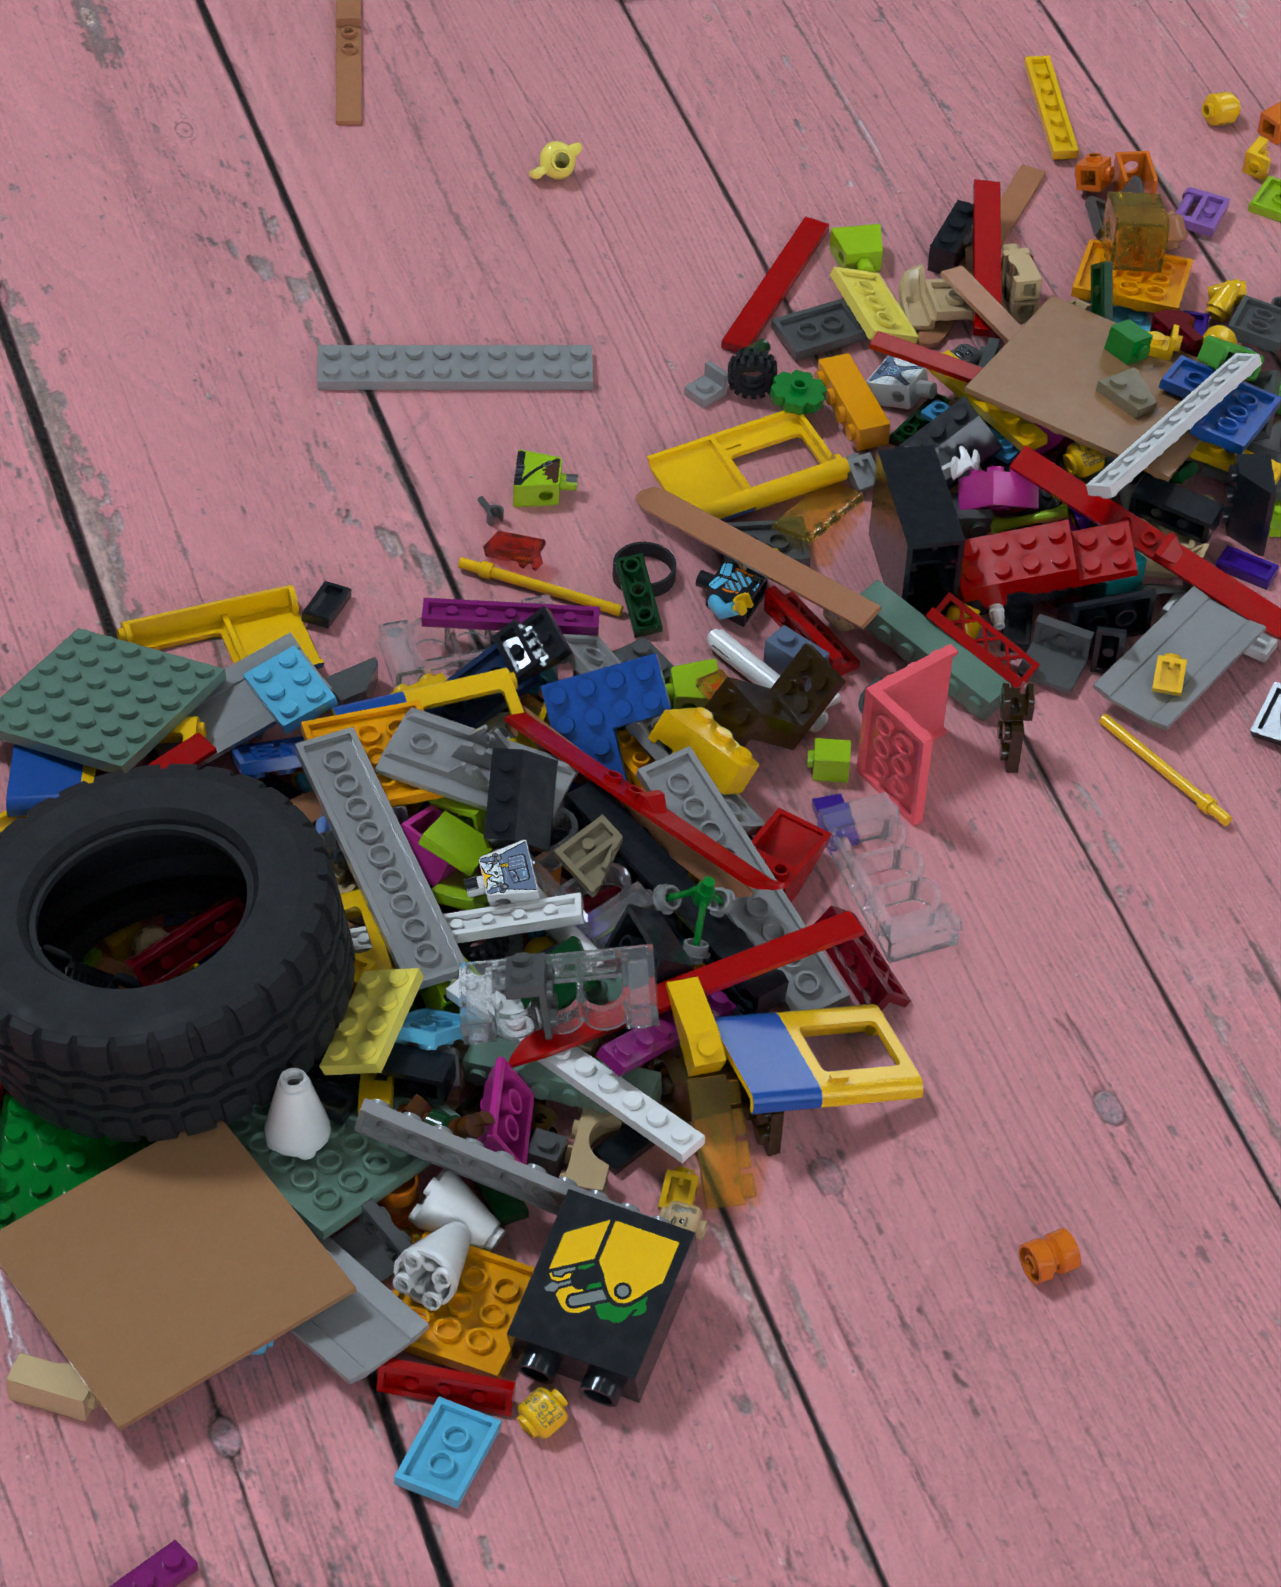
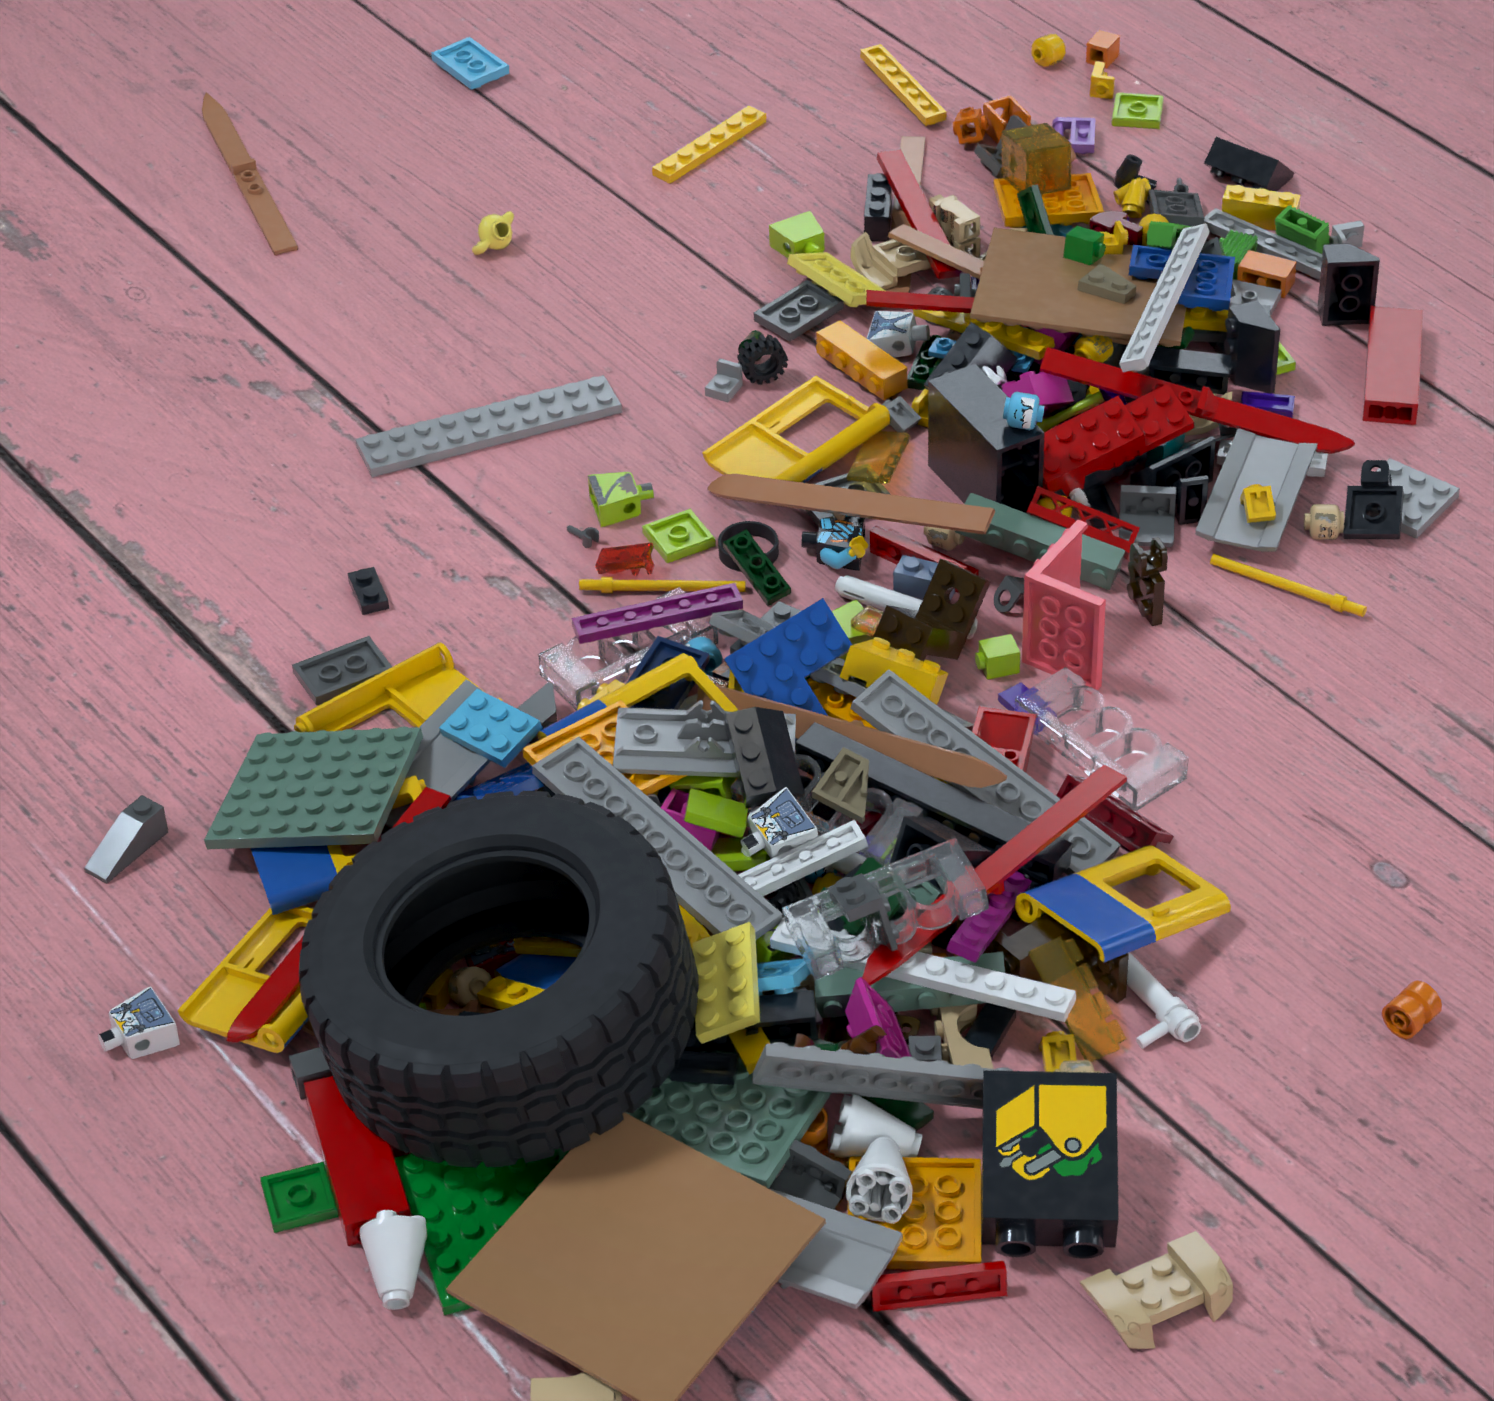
camera: 15 degrees left, 5 degrees down
(188, 942) = (520, 962): dark red fence -> none
(189, 583) = (340, 669): none -> dark grey plate
(255, 509) = (368, 590): none -> black plate
(296, 1117) = (695, 1087): white cone -> none
(326, 604) = (476, 653): black tile -> none
(447, 1452) = (969, 1343): medium azure plate -> none
(532, 645) = (693, 628): black slope -> none
(542, 1413) = (1038, 1281): yellow head -> none
(582, 538) = (678, 535): none -> lime tile
(649, 804) = (876, 727): red piece -> none
(655, 1460) = (1161, 1289): none -> tan piece
(696, 1027) = (1021, 902): yellow slope -> none
(704, 896) = (976, 789): plant -> none
(775, 285) = (739, 286): red tile -> none
(798, 392) = (811, 364): green plant -> none
(810, 1180) = (1169, 1010): none -> white cylinder
(821, 120) = (709, 144): none -> yellow plate
(949, 511) = (1023, 410): none -> medium azure head
(1232, 269) = (1129, 170): none -> black piece
(1236, 712) = (1324, 521): none -> tan head

